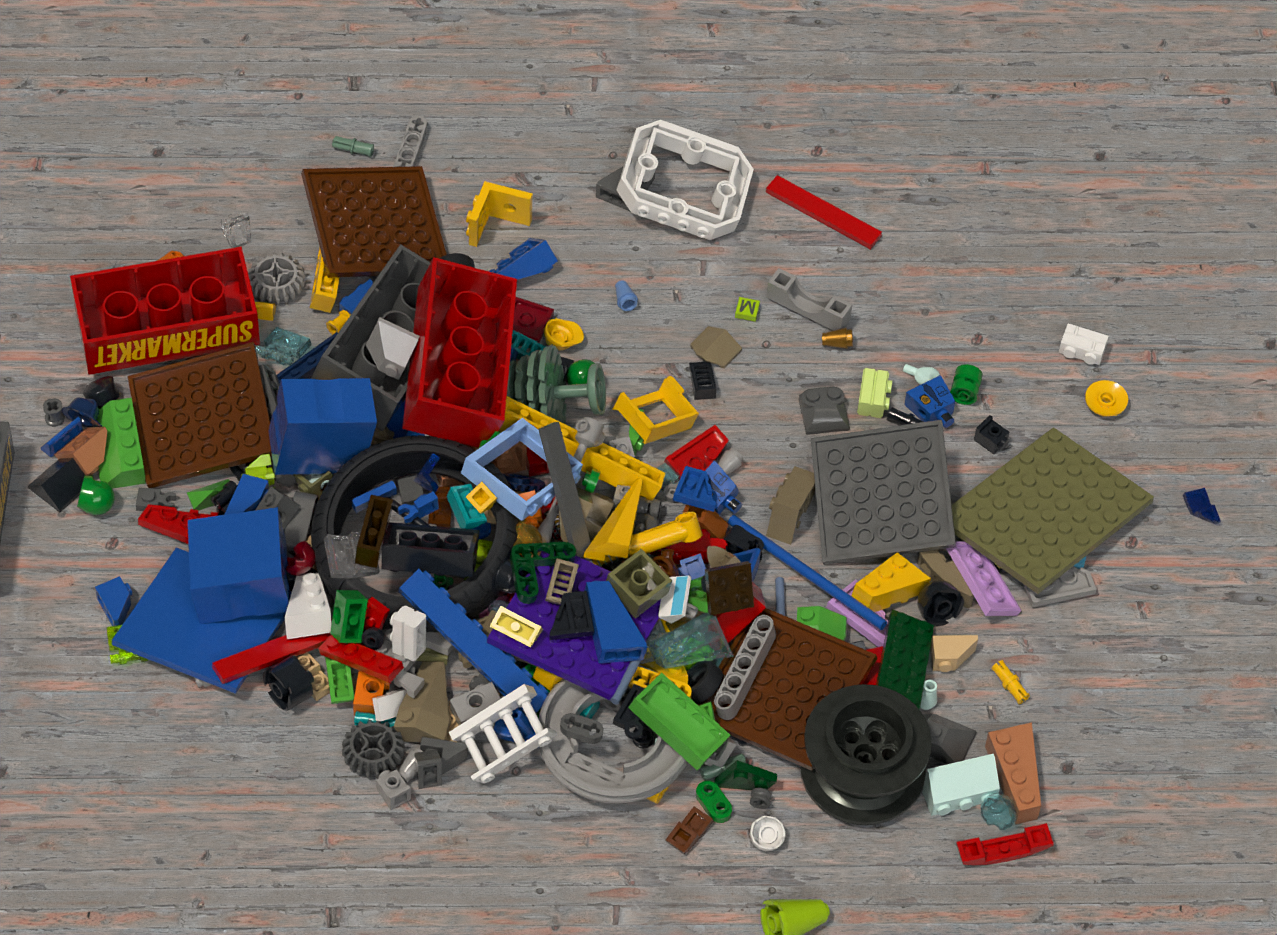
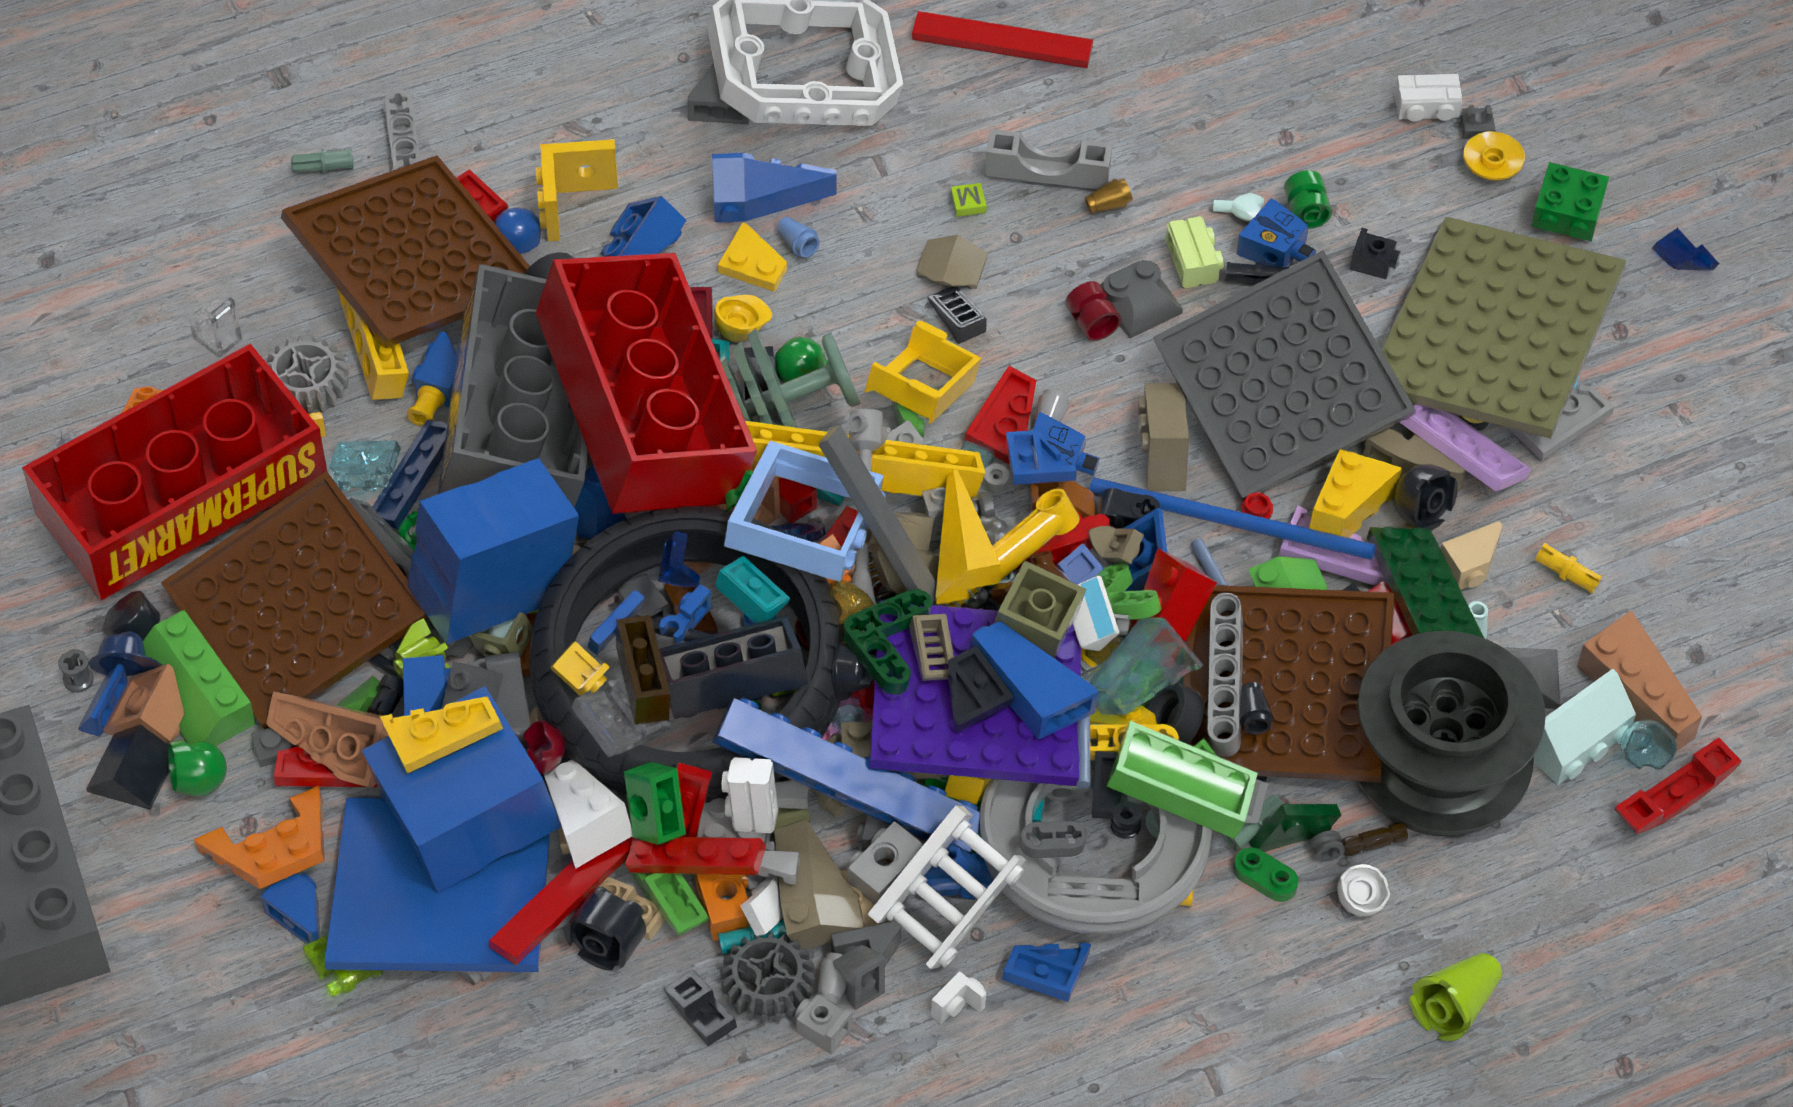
camera: 20 degrees left, 0 degrees up
(118, 564) = (275, 852): none -> orange wing
(181, 502) = (328, 734): none -> nougat wedge
(233, 525) = (434, 734): none -> yellow wing
(325, 752) = (699, 1007): none -> black slope
(338, 518) = (580, 670): none -> yellow bracket
(376, 634) = (701, 813): black plate -> none
(391, 347) = (545, 406): light grey slope -> none
(440, 202) = (482, 194): none -> red plate
(453, 231) = (520, 228): none -> blue hair
(479, 802) = (955, 994): none -> white bracket
(481, 498) = (771, 569): yellow slope -> none
(516, 626) = (905, 730): light yellow slope -> none
(546, 807) = (1046, 968): none -> blue wing
(589, 301) = (752, 260): none -> yellow wing
(590, 480) = (895, 494): green plate -> none
(608, 255) = (758, 188): none -> blue wedge
(690, 830) = (1254, 925): reddish brown slope -> none
(728, 588) = (1163, 572): dark brown plate -> none
(752, 697) = (1255, 710): none -> black cone
(787, 408) = (1093, 311): none -> dark red wheel
(793, 805) = (1375, 839): none -> dark brown axle
(829, 570) = (1258, 505): none -> red plate
(1109, 371) = (1476, 121): none -> dark grey tile
(1140, 445) = (1570, 201): none -> green brick

